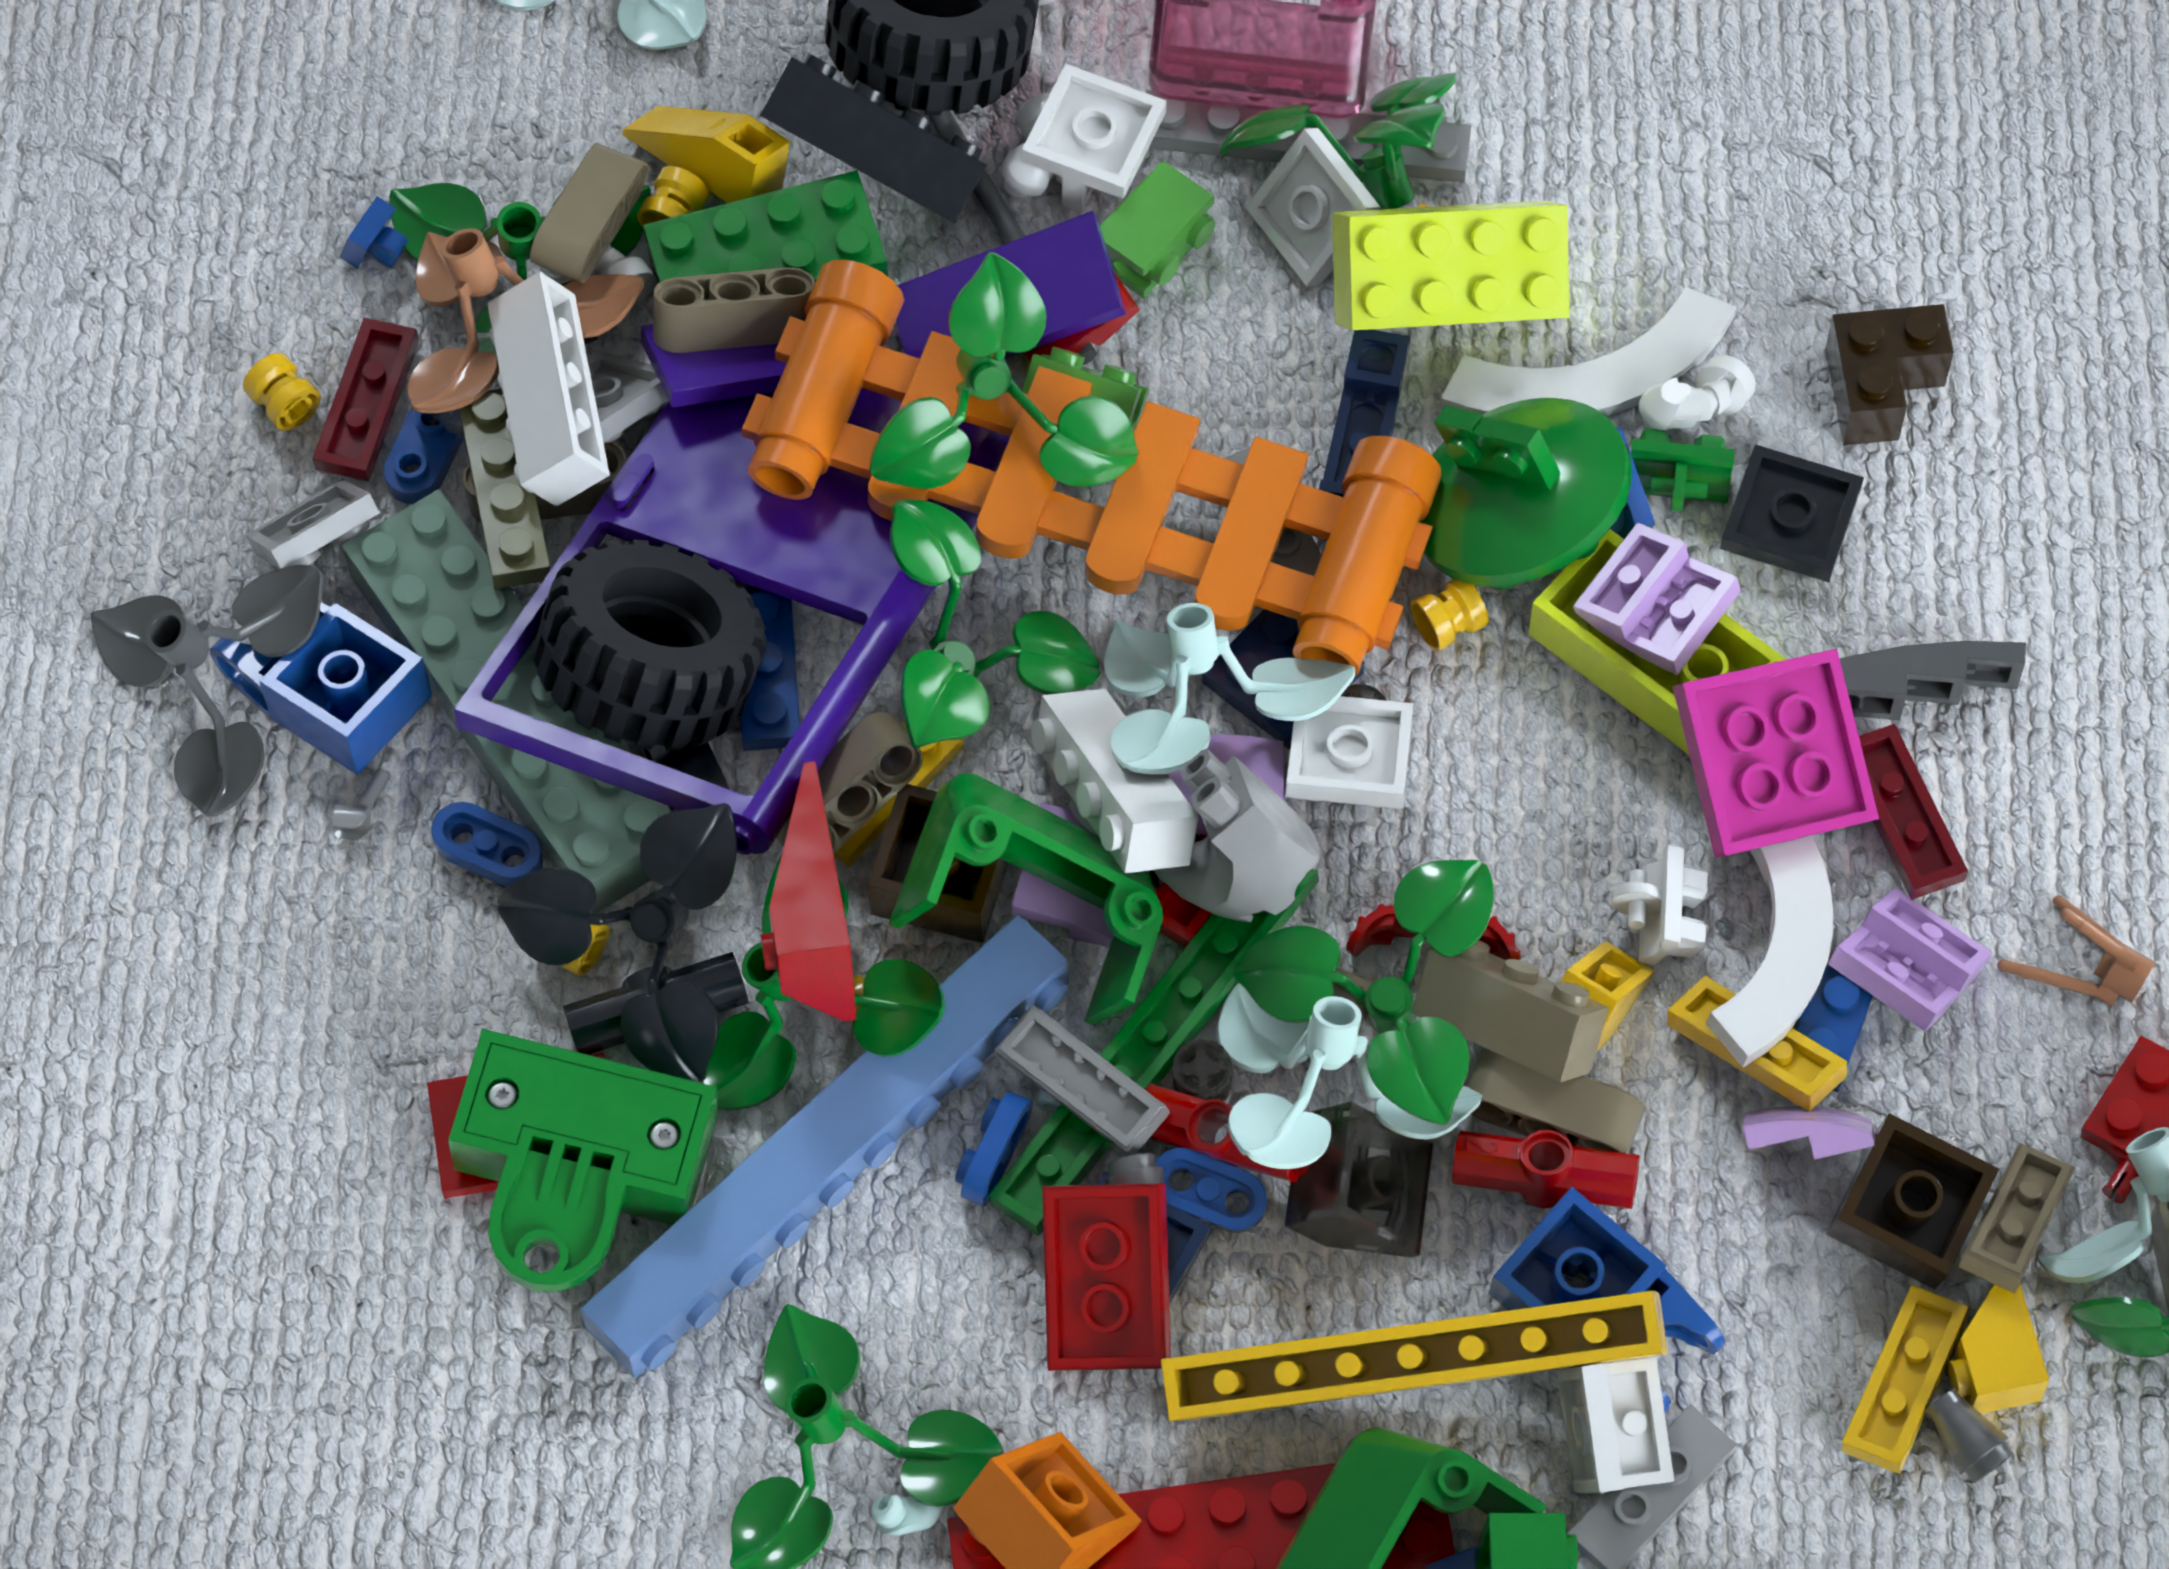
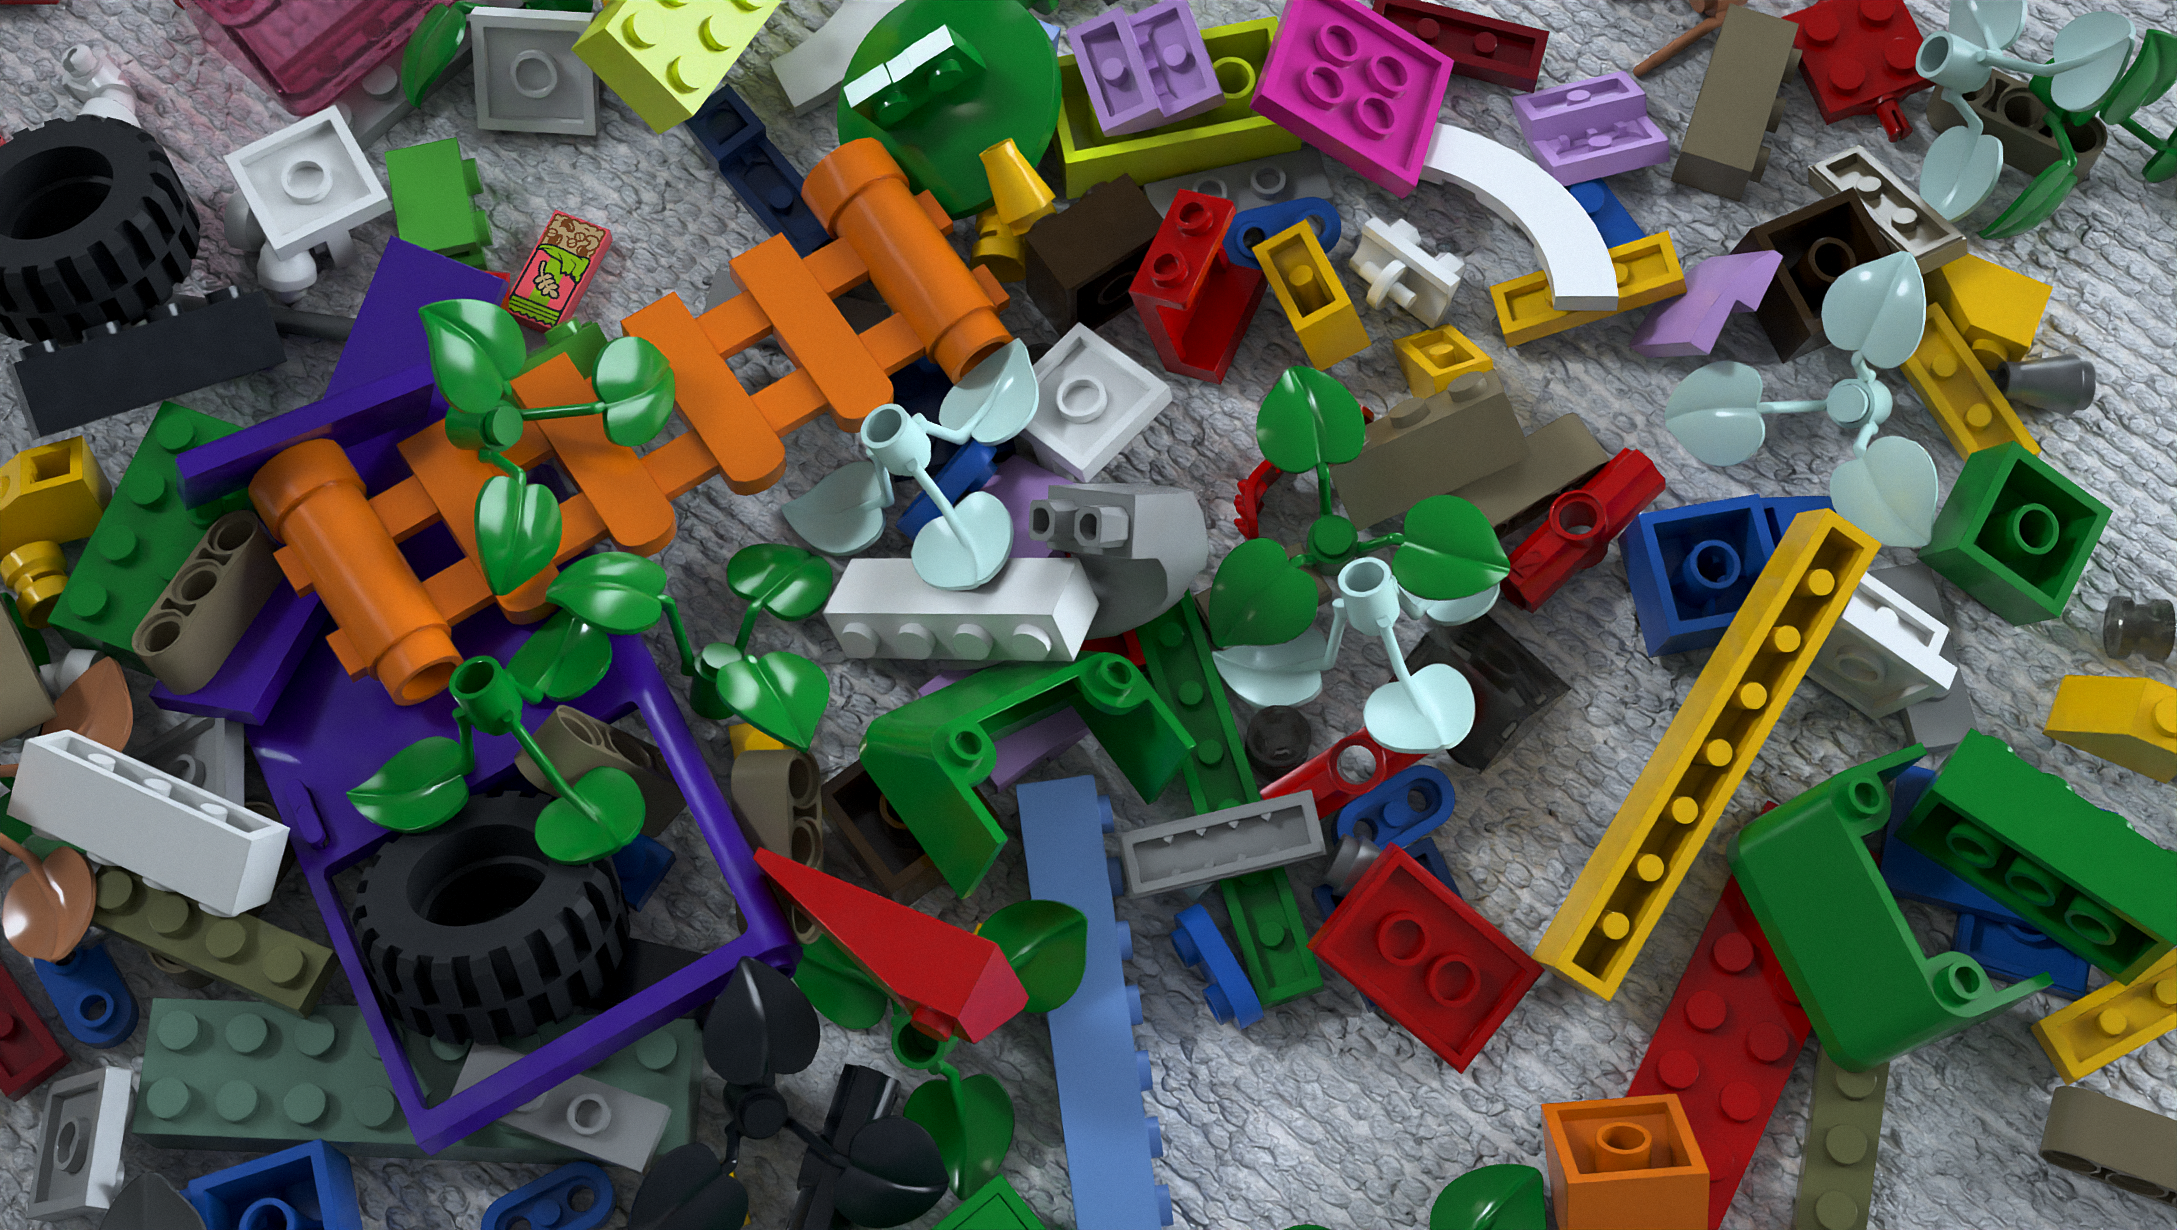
camera: 55 degrees left, 5 degrees up
(557, 800) = (578, 1113): none -> light grey plate
(707, 531) = (426, 781): none -> green plant
(803, 630) = (581, 742): none -> dark tan beam
(831, 239) = (344, 417): none -> dark purple tile
(1176, 343) = (558, 272): none -> tile
(1237, 714) = (967, 469): none -> blue plate
(1478, 681) = (1089, 255): none -> dark brown brick
(1479, 582) = (1016, 187): none -> yellow cone
(1508, 763) = (1190, 291): none -> red panel
(1579, 853) = (1312, 296): none -> yellow slope
(1622, 797) = (1276, 218): none -> blue plate
(1628, 747) = (1251, 182): none -> light grey plate
(1750, 1351) = (1891, 484): none -> light aqua plant
(1799, 1482) = (2015, 534): none -> green brick
(2027, 1049) = (1738, 103): none -> dark tan brick

